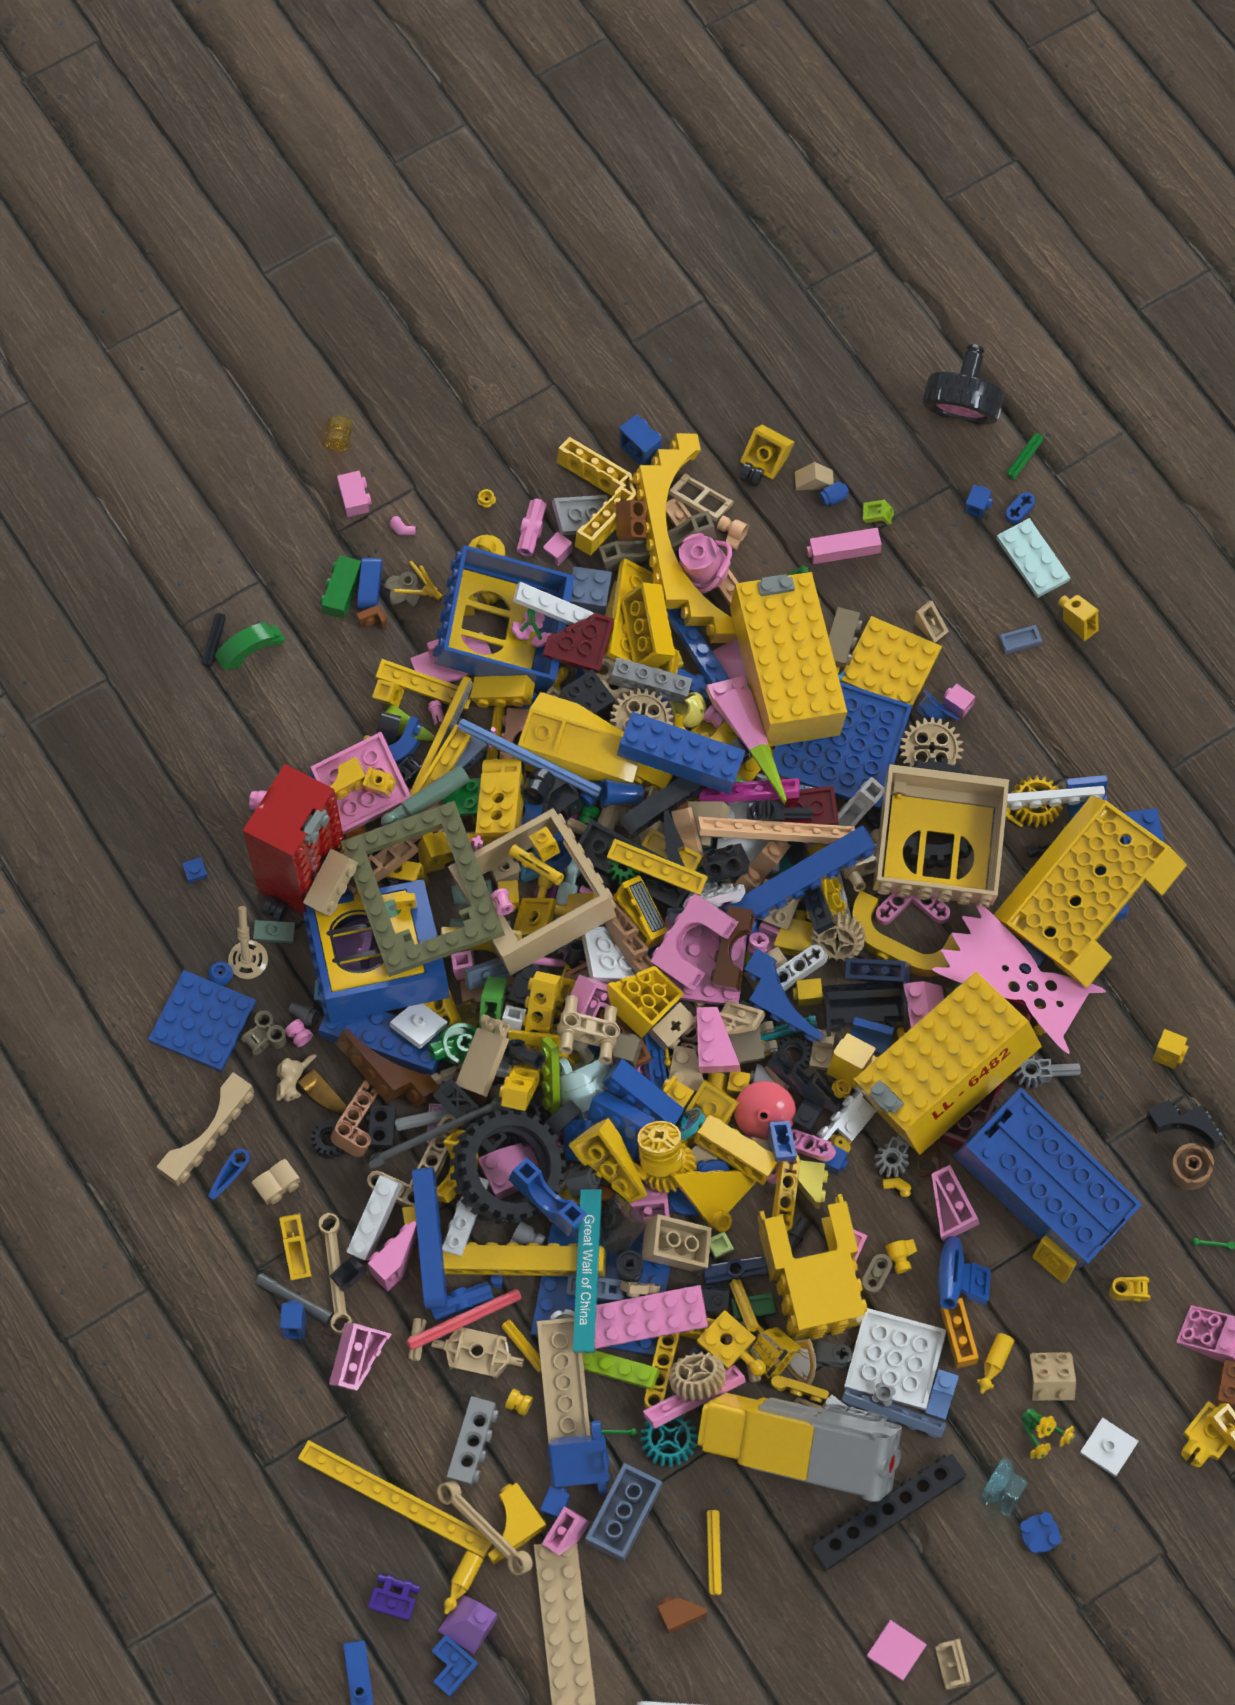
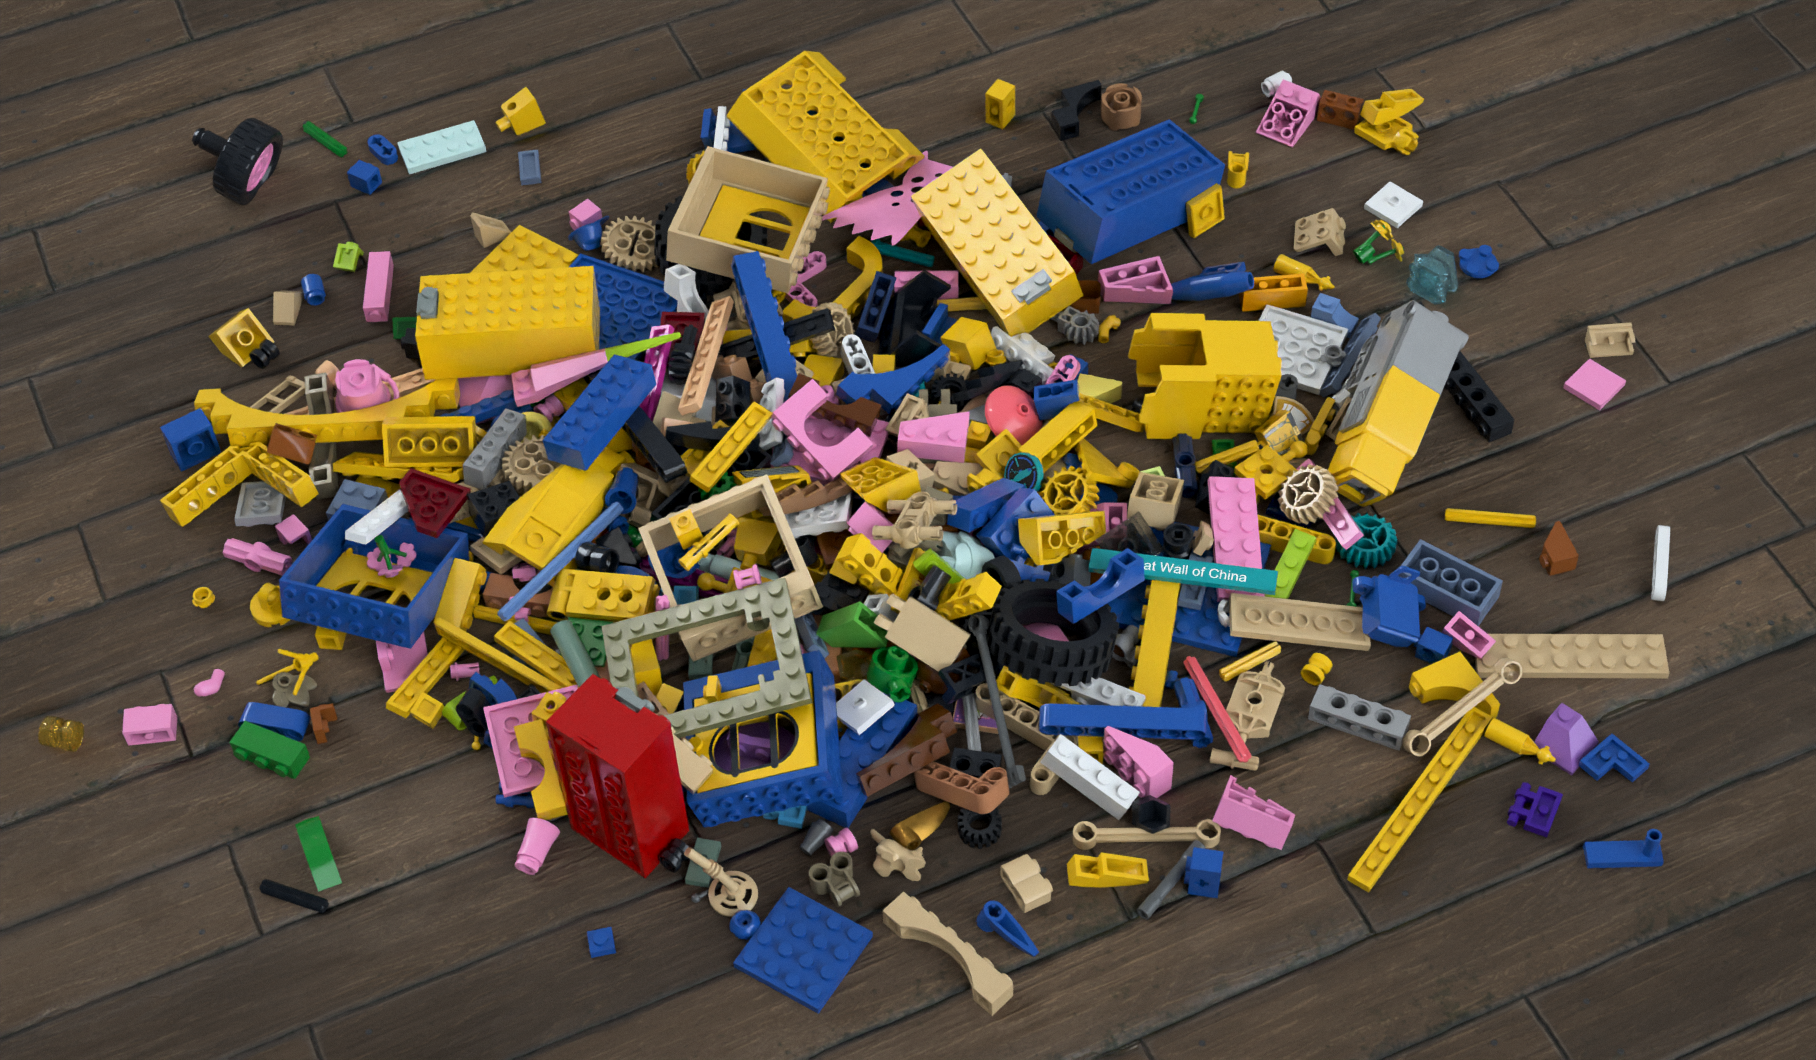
camera: 80 degrees left, 15 degrees down
(660, 1148) = (1058, 481): yellow wheel -> none

